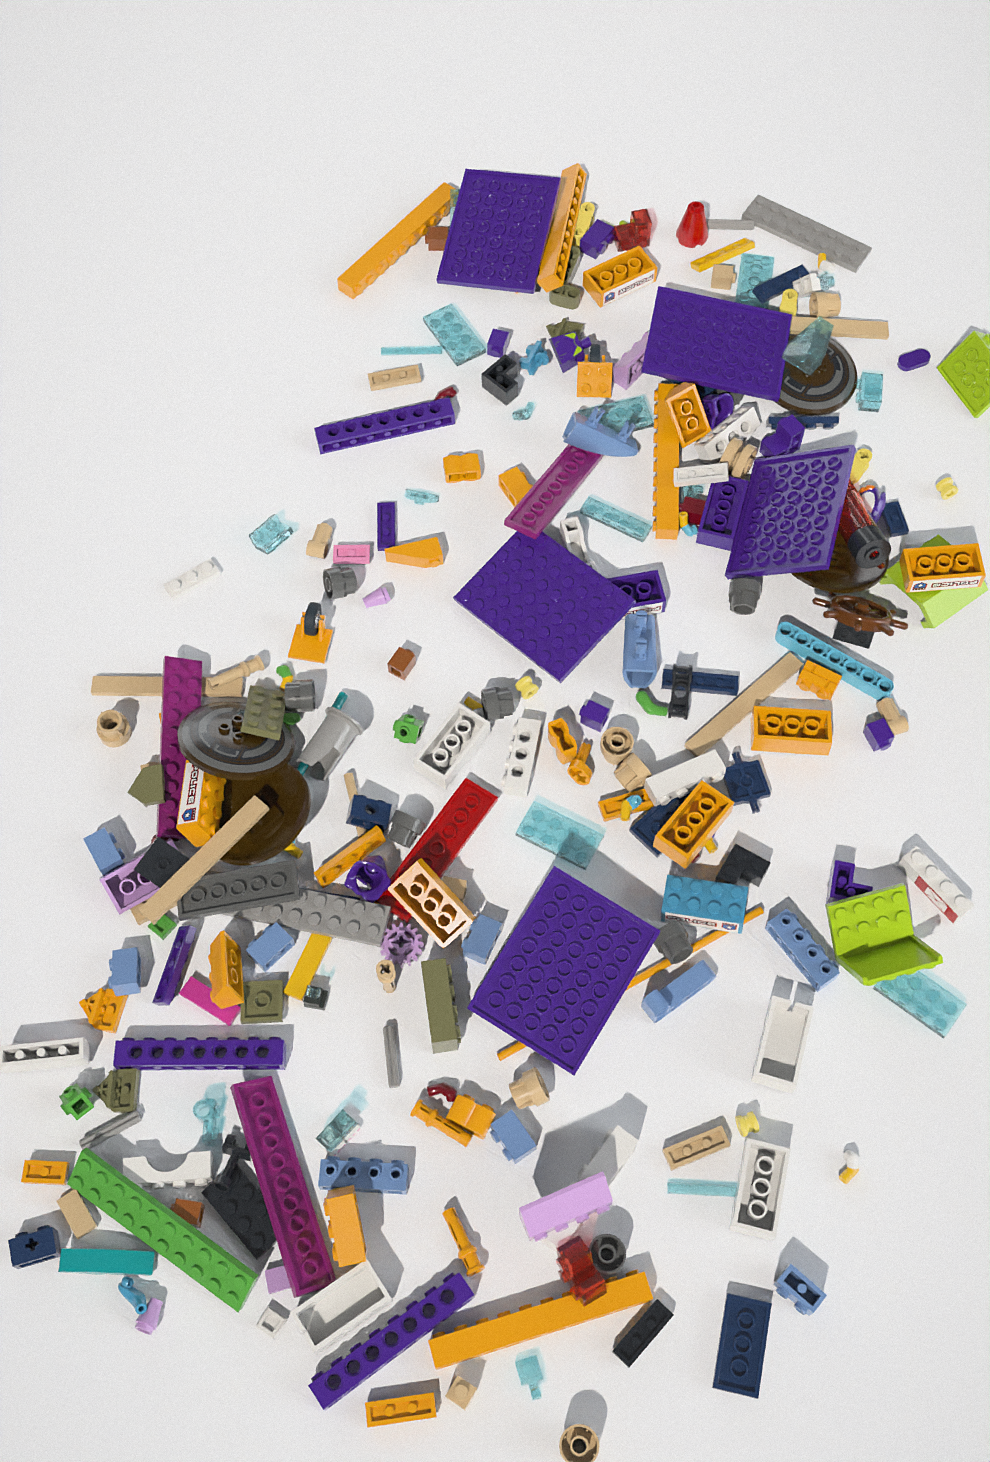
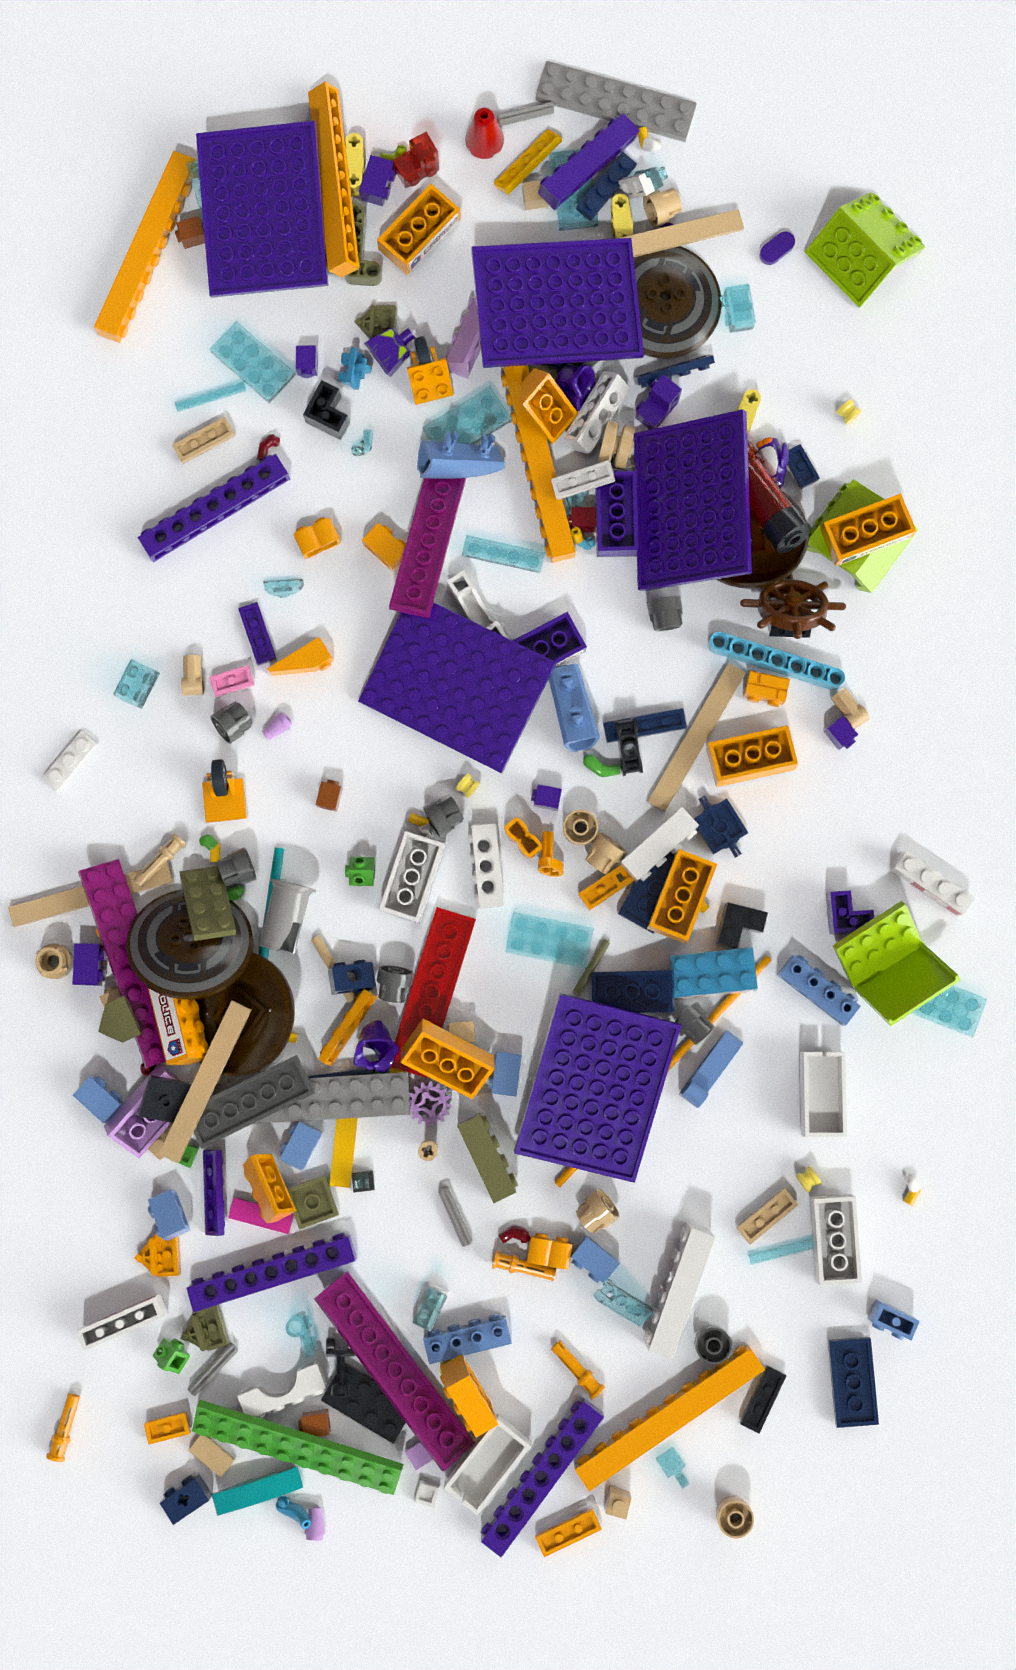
camera: 20 degrees left, 20 degrees up
(141, 739) = (88, 964): none -> dark purple brick
(526, 1184) = (623, 1303): none -> clear light blue plate
(565, 1207) = (667, 1325): lavender slope -> none
(579, 1272) = (691, 1367): clear red brick -> none
(596, 866) = (591, 967): none -> olive bar
(628, 805) = (610, 890): arm -> none
(635, 895) = (635, 990): none -> dark blue plate
(771, 261) = (588, 161): none -> dark purple brick
(810, 346) = (661, 275): clear light blue wedge -> none

